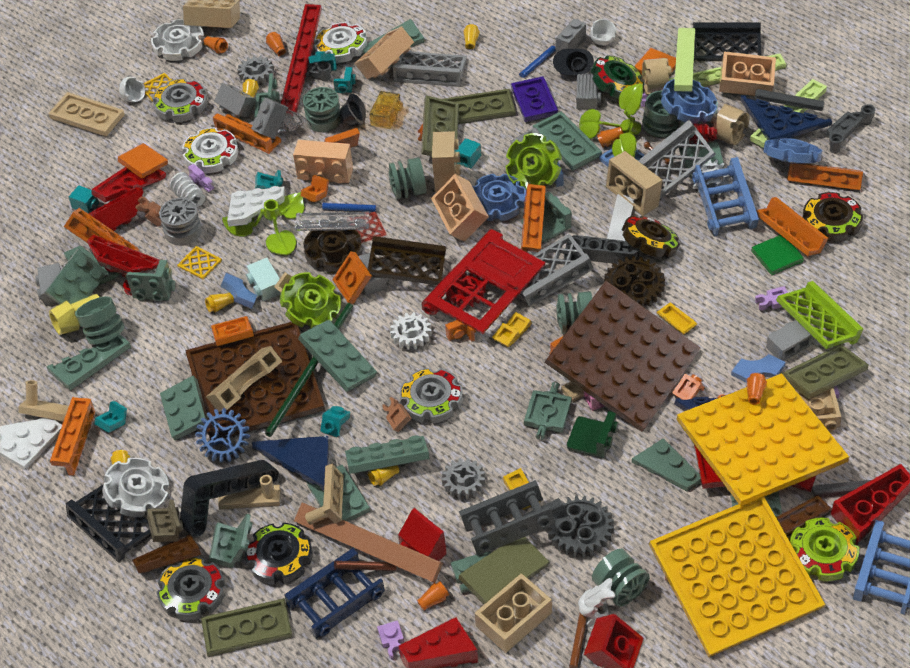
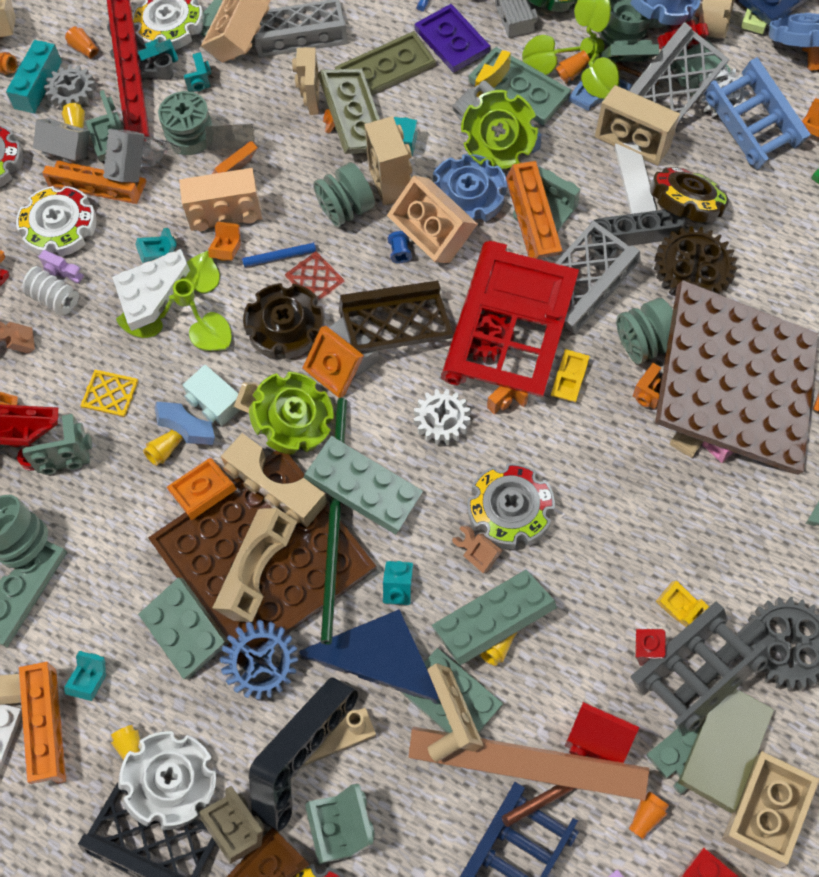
camera: 20 degrees left, 15 degrees up
(180, 221) = (61, 341): light grey wheel -> none
(227, 62) = (28, 83): none -> teal brick
(278, 553) = (416, 841): black piece -> none
(290, 350) = (298, 499): none -> tan arch
(332, 221) = (272, 285): clear plate -> none
(341, 123) = (229, 137): none -> clear smoke panel
(353, 111) = (226, 111): black piece -> none
(385, 110) = (268, 101): clear yellow brick -> none
(417, 91) = (307, 77): none -> tan plate
(432, 222) = (400, 249): none -> blue bush
(463, 478) = (620, 616): light grey gear -> none
(480, 495) = (650, 645): none -> red bracket
(548, 411) = (670, 483): sand green plate -> none
(551, 126) = (494, 74): none -> yellow slope
(593, 436) = (746, 501): dark green bracket -> none
(647, 134) = (639, 52): none -> sand green plate
(676, 318) = (768, 299): yellow tile -> none

